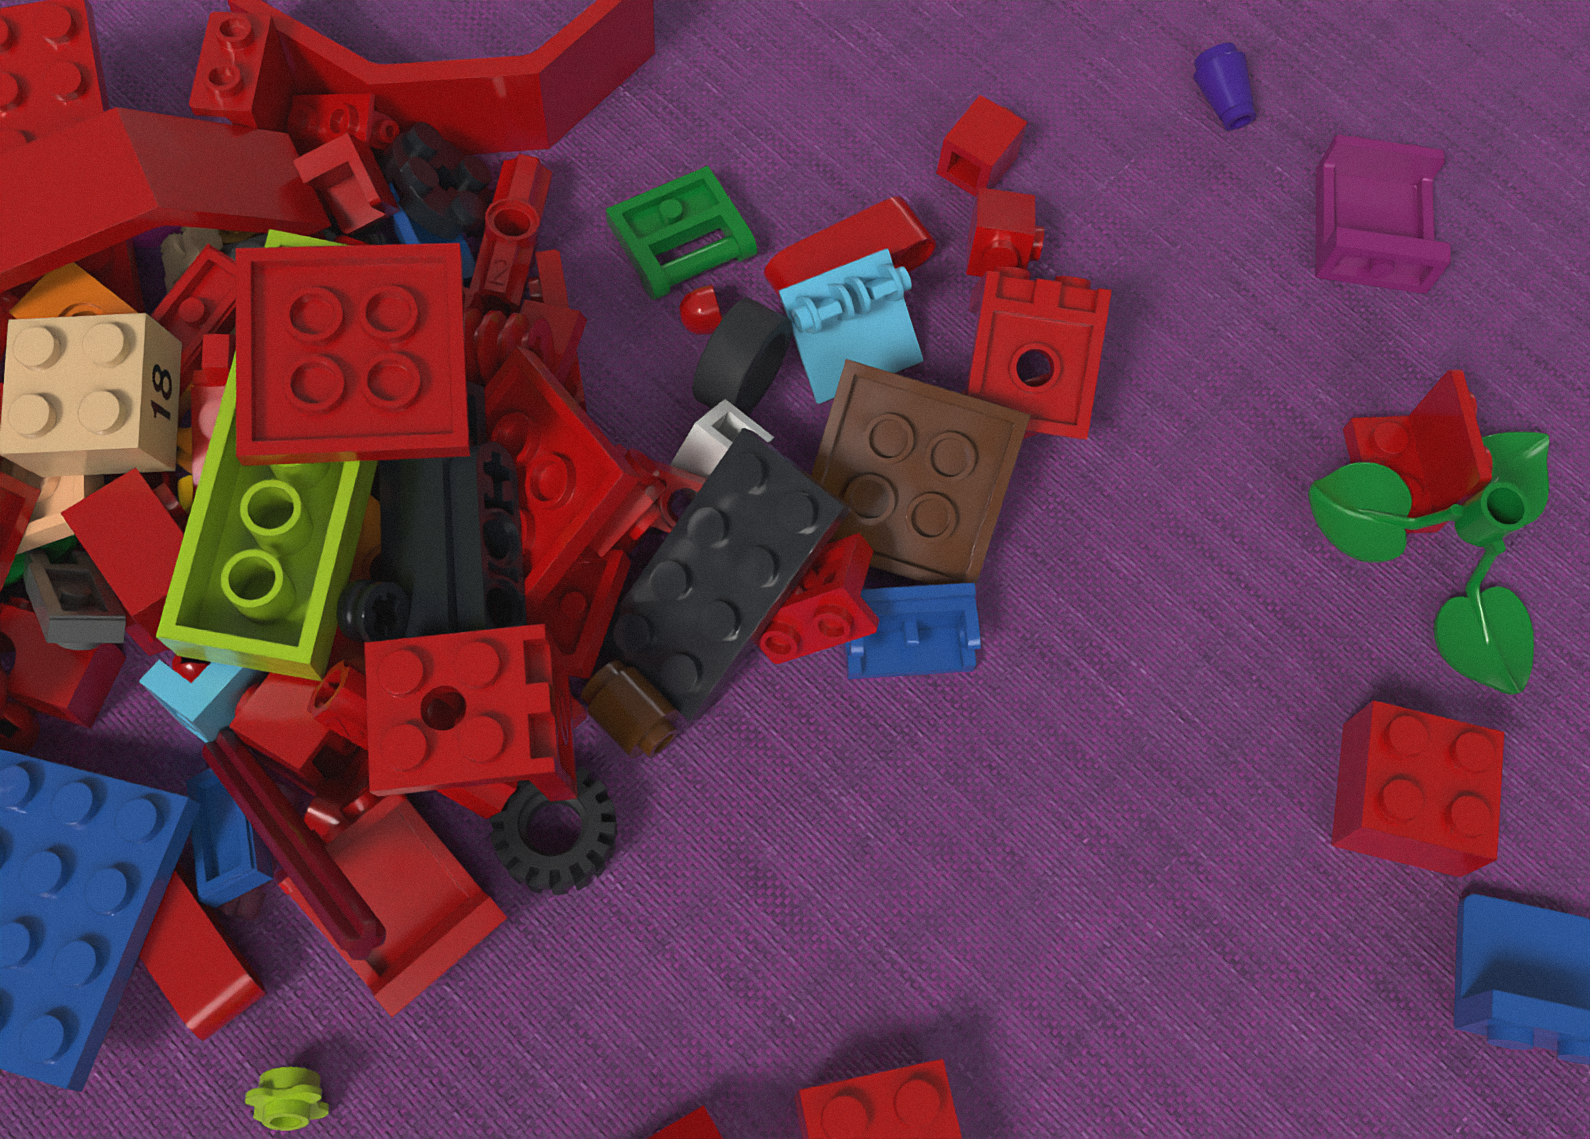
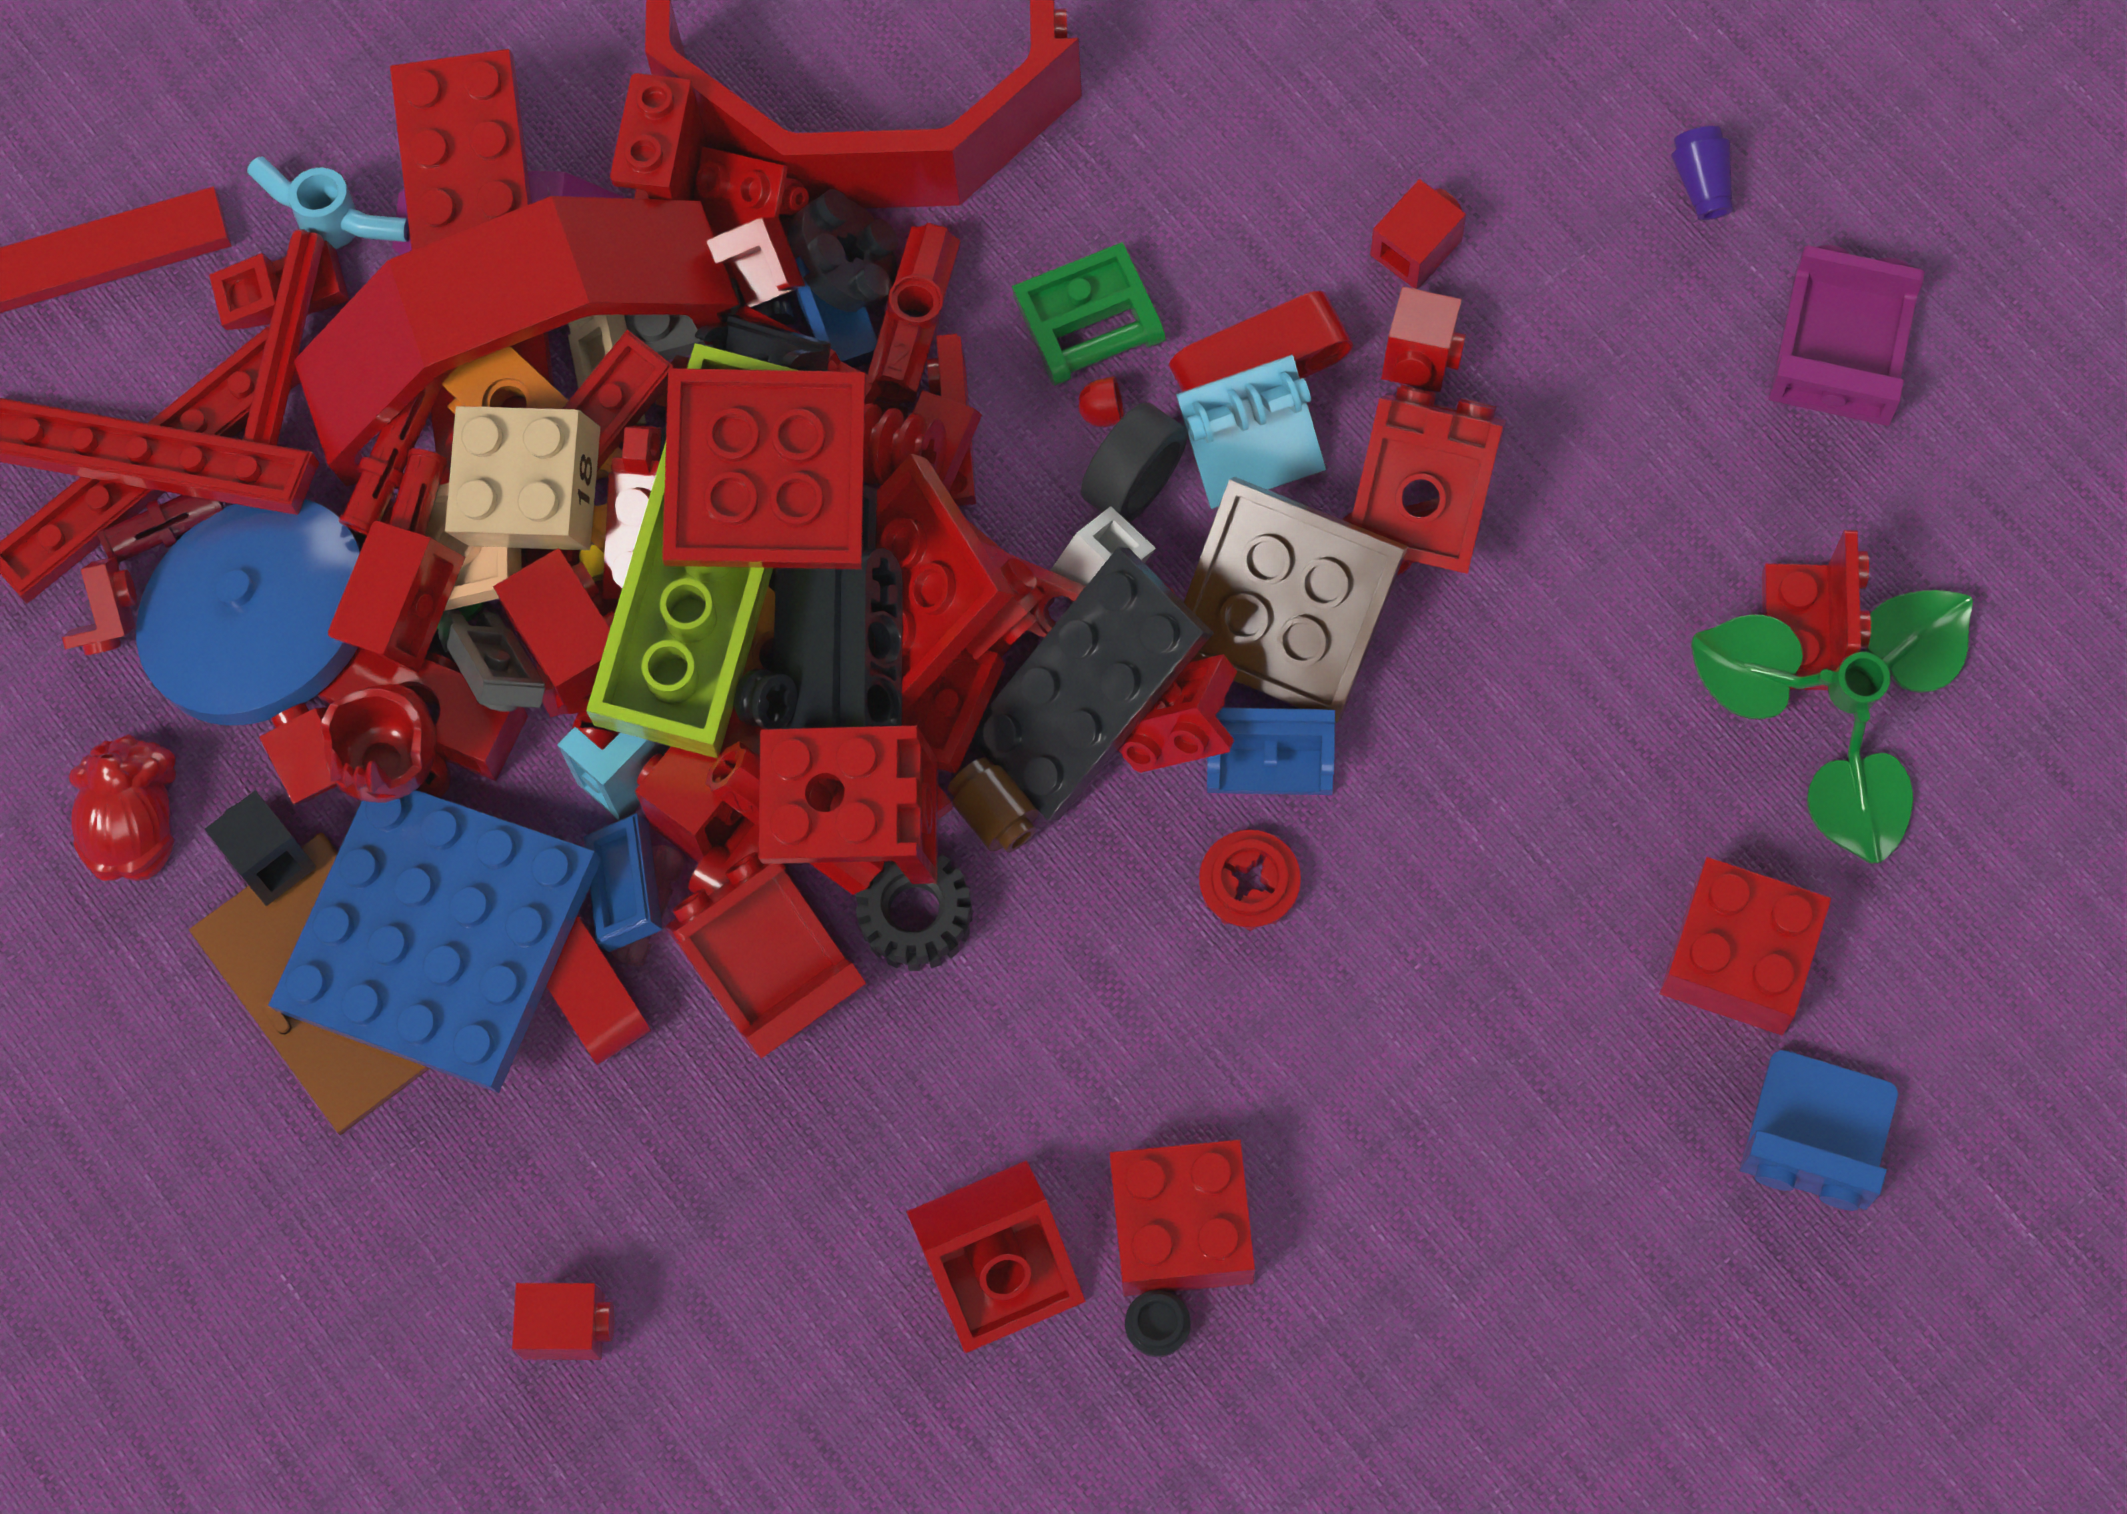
camera: 20 degrees right, 5 degrees up
(287, 1098) = (667, 1119): lime plate -> none
(295, 847) = (686, 896): dark red axle -> none
(934, 757) = (1240, 853): none -> red gear

